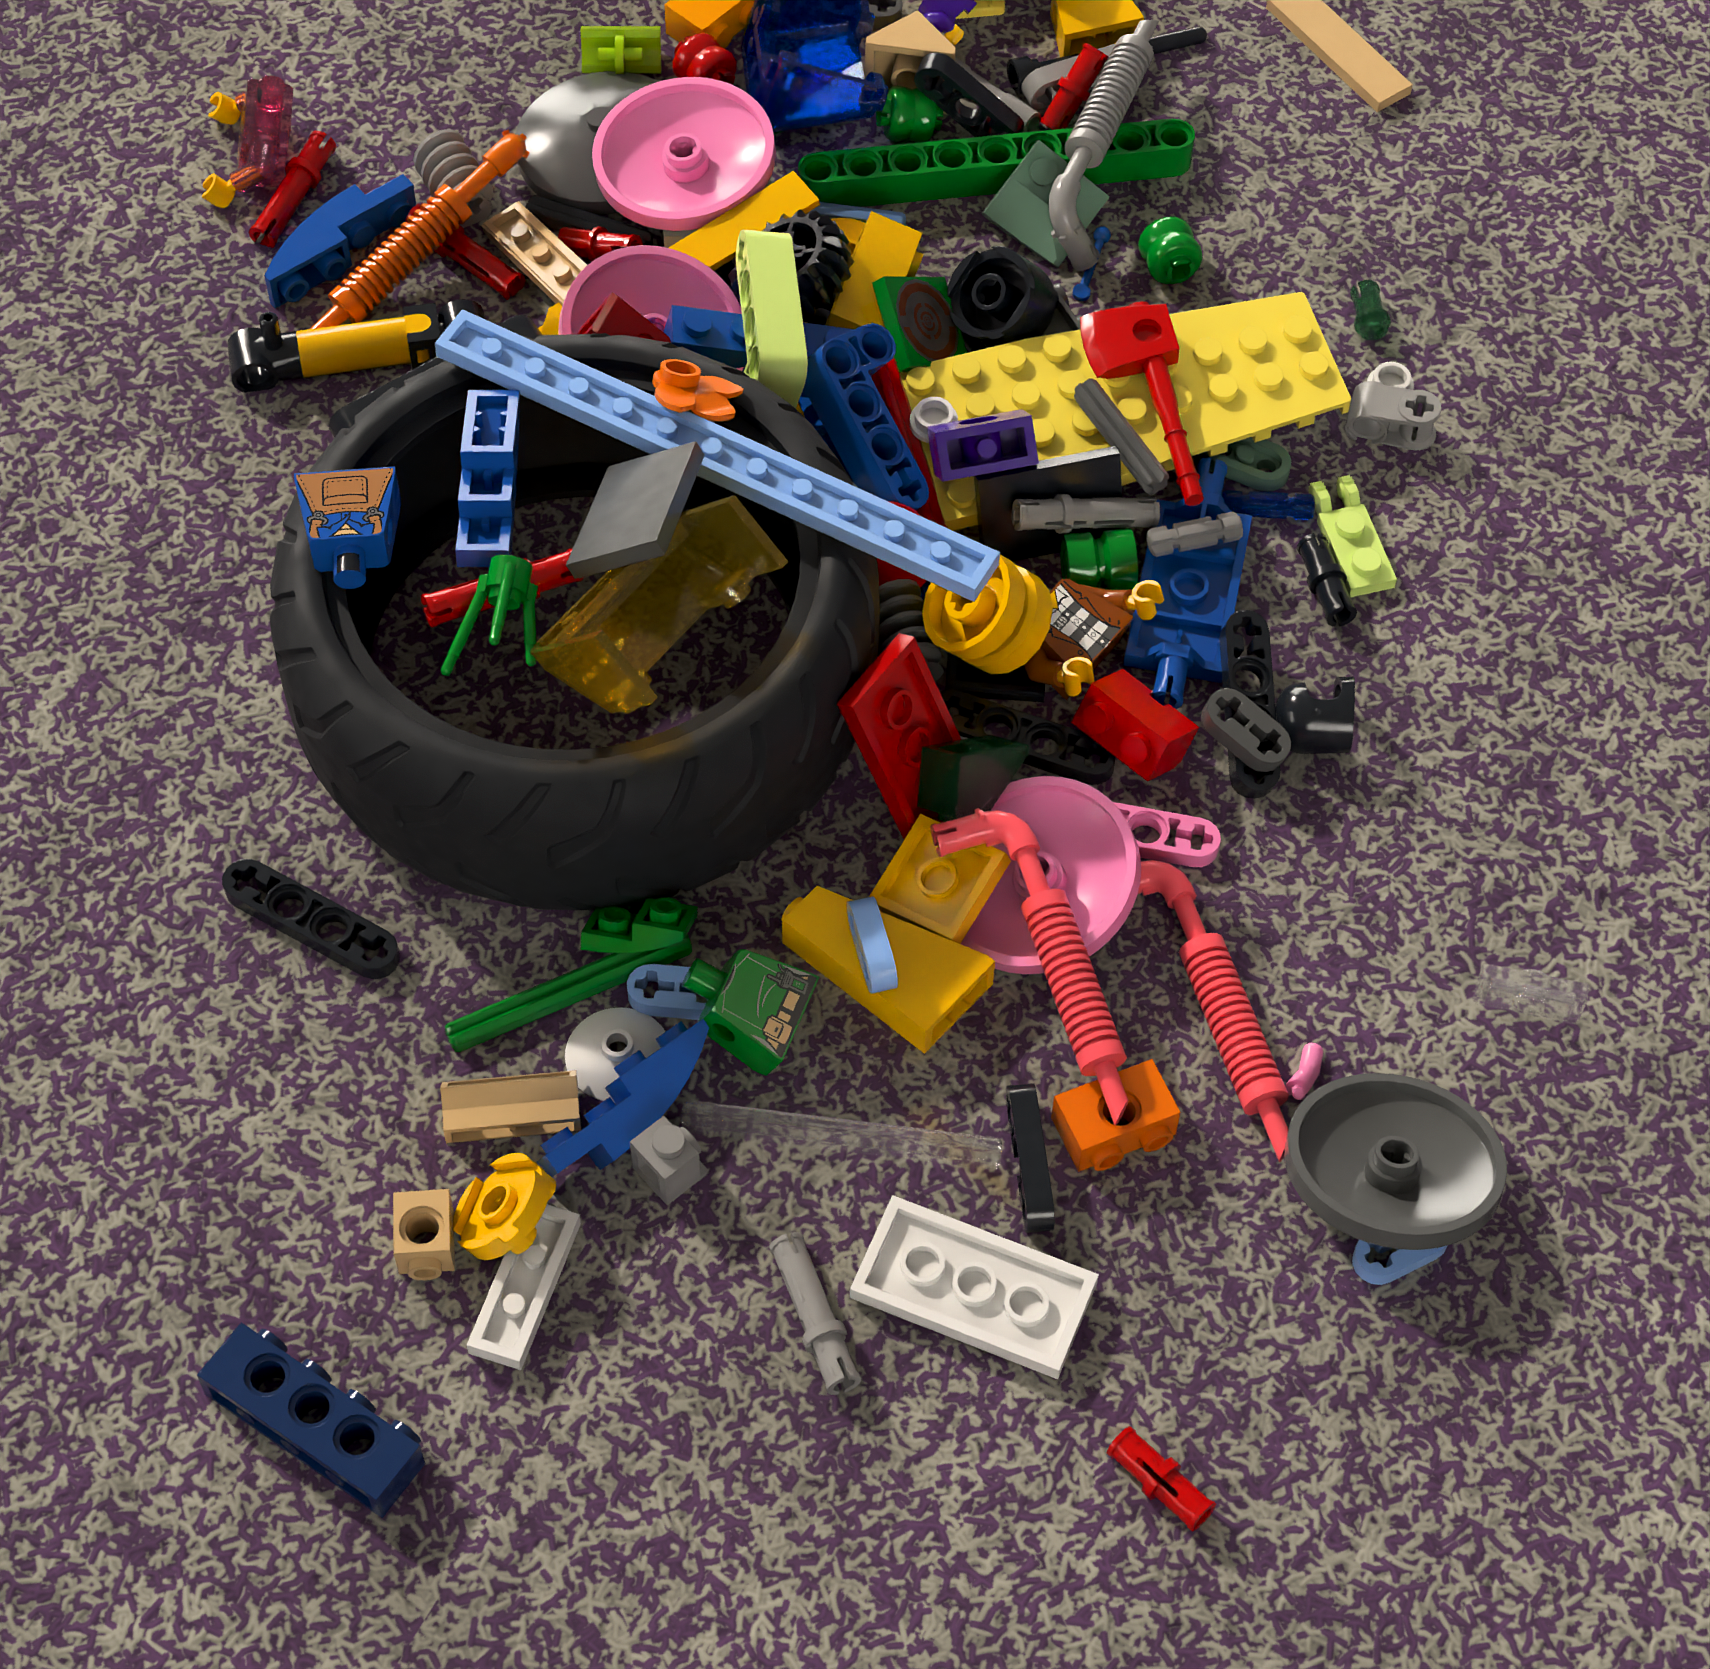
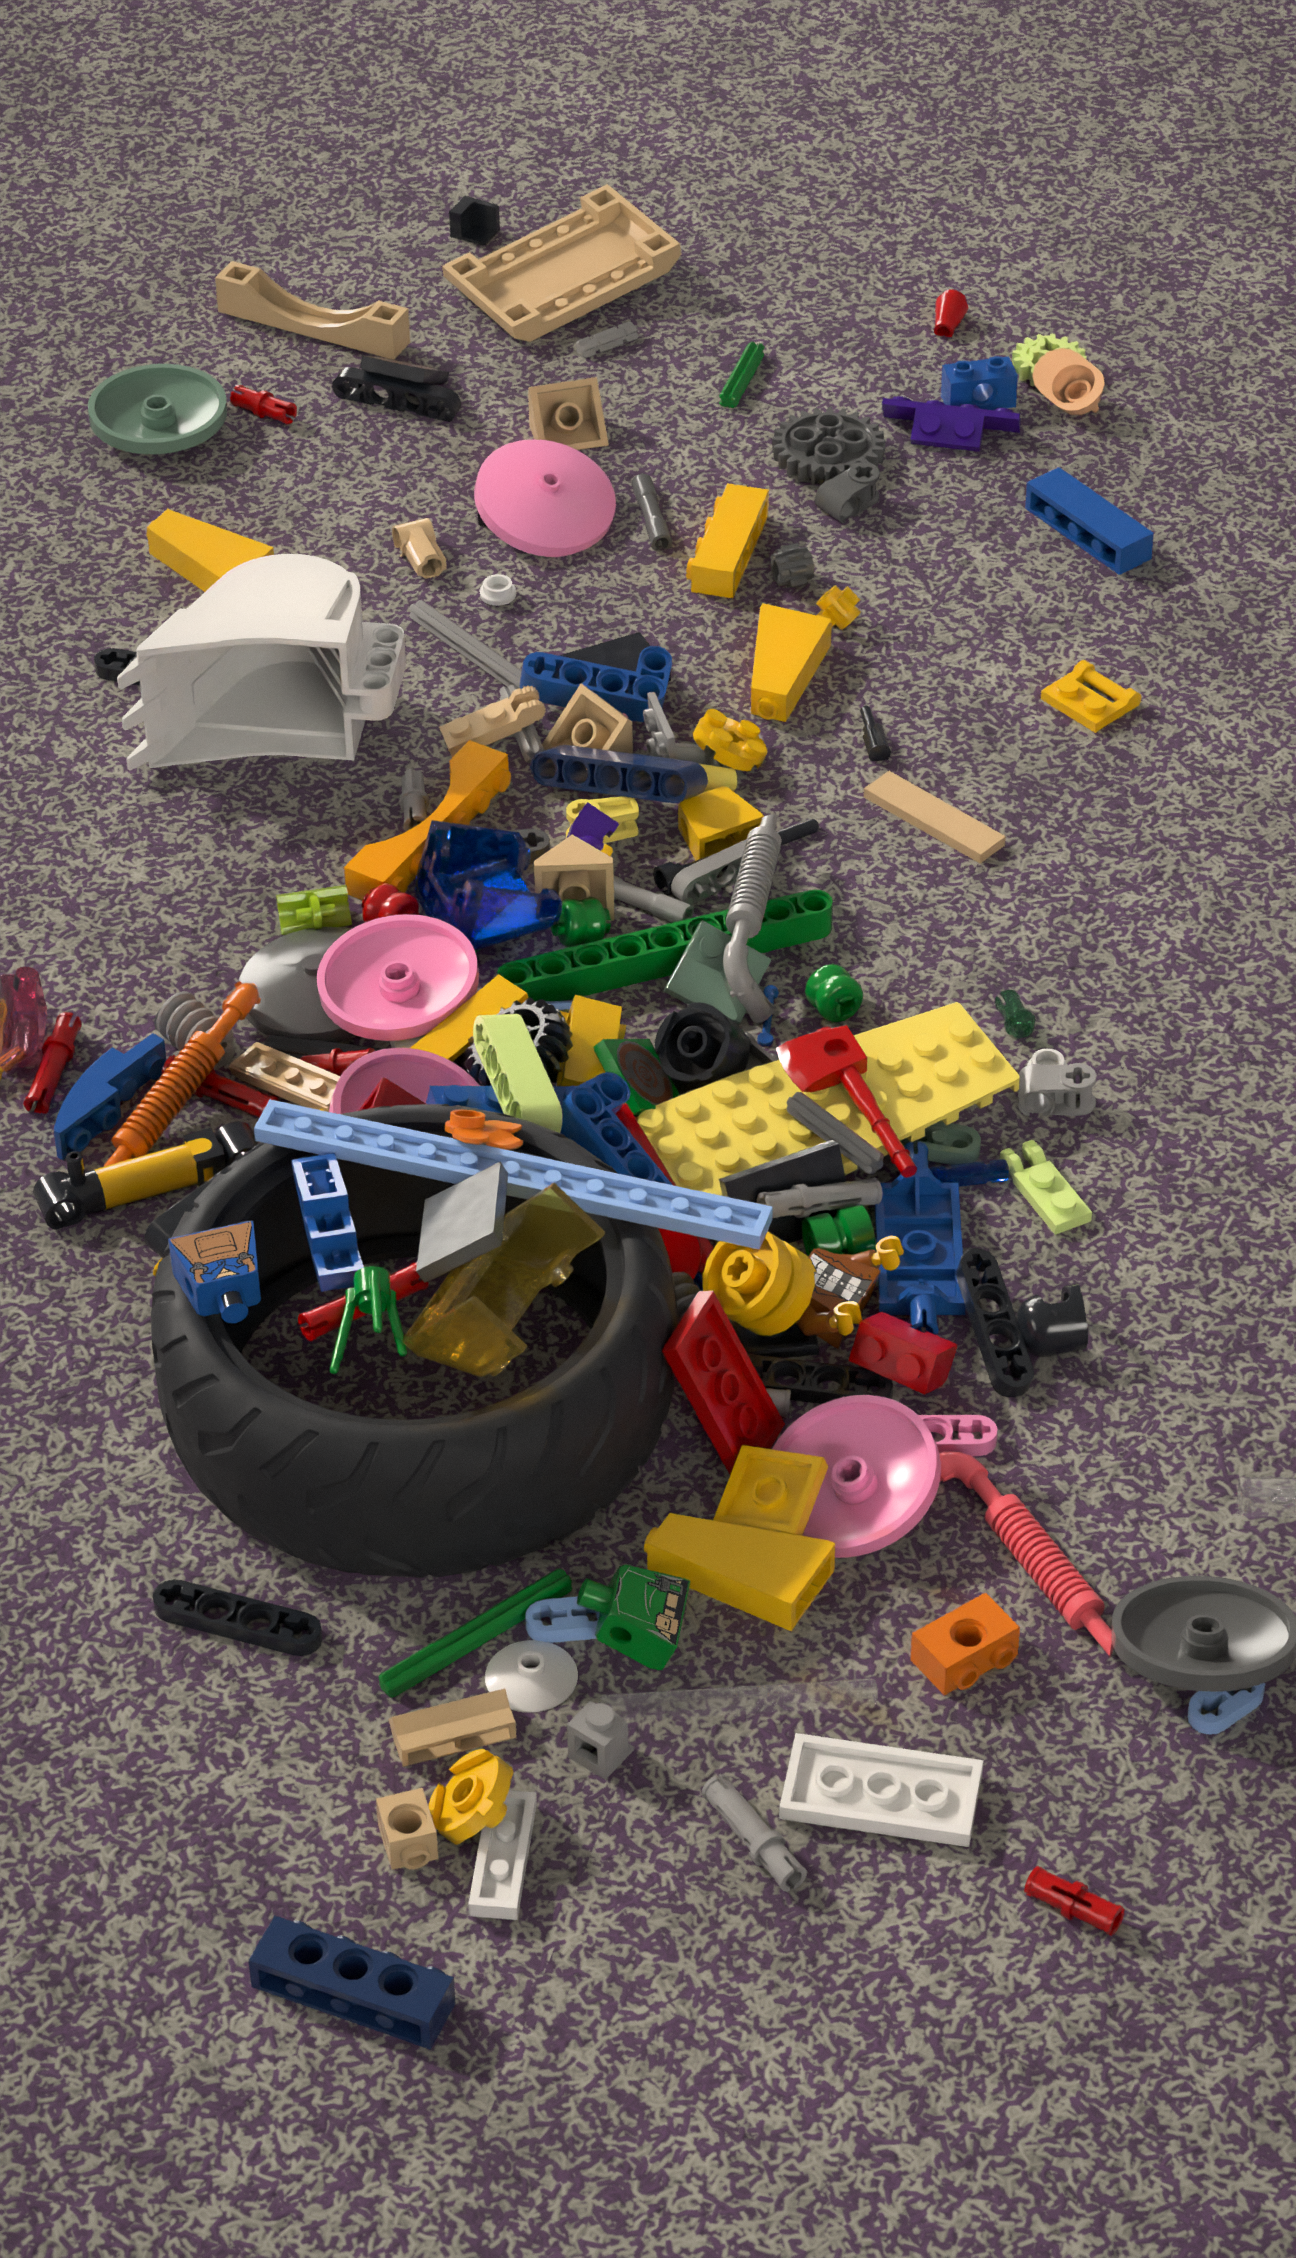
camera: 10 degrees left, 15 degrees down
(641, 1097) = (556, 1701): blue slope -> none
(656, 926) = (539, 1567): green slope -> none
(872, 944) = (730, 1543): light blue beam -> none
(928, 413) = (672, 1145): white plate -> none
(947, 82) = (624, 889): black beam -> none
(967, 774) = (774, 1409): slope -> none
(982, 445) = (721, 1154): dark purple brick -> none
(1029, 1147) = (903, 1684): black beam -> none
(1057, 944) = (885, 1517): coral piece -> none
(1074, 88) = (719, 878): red pin -> none
(1194, 534) = (914, 1201): light grey axle -> none
(1245, 730) = (997, 1339): dark grey beam -> none
(1308, 1071) = (1115, 1587): bright pink piece -> none
(1326, 579) = (1033, 1222): black pin -> none

